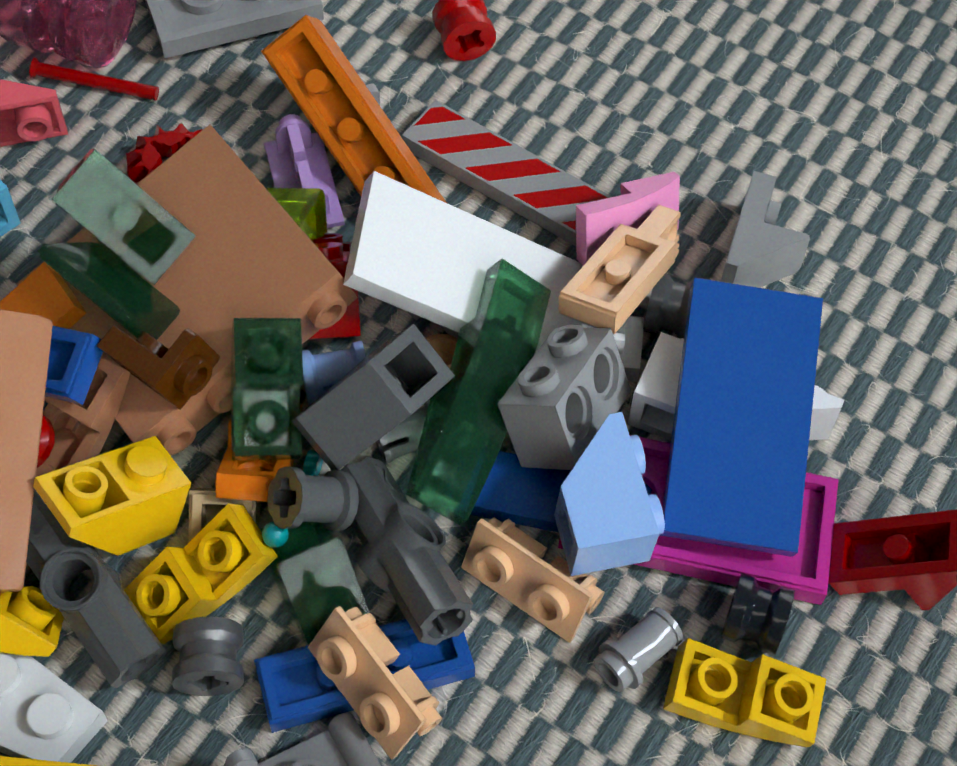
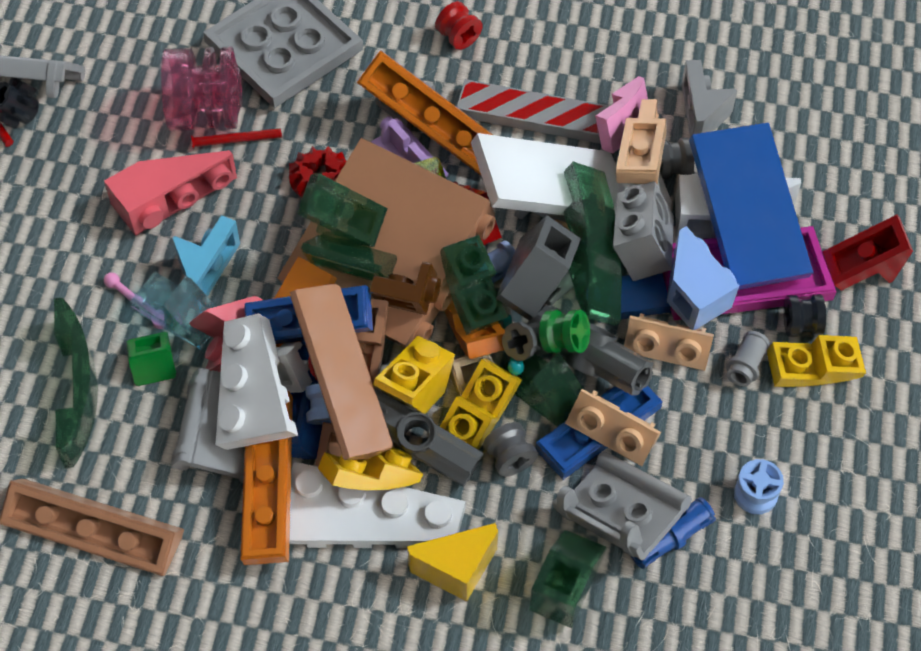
camera: 20 degrees left, 0 degrees up
(357, 507) = (564, 331): none -> green wheel

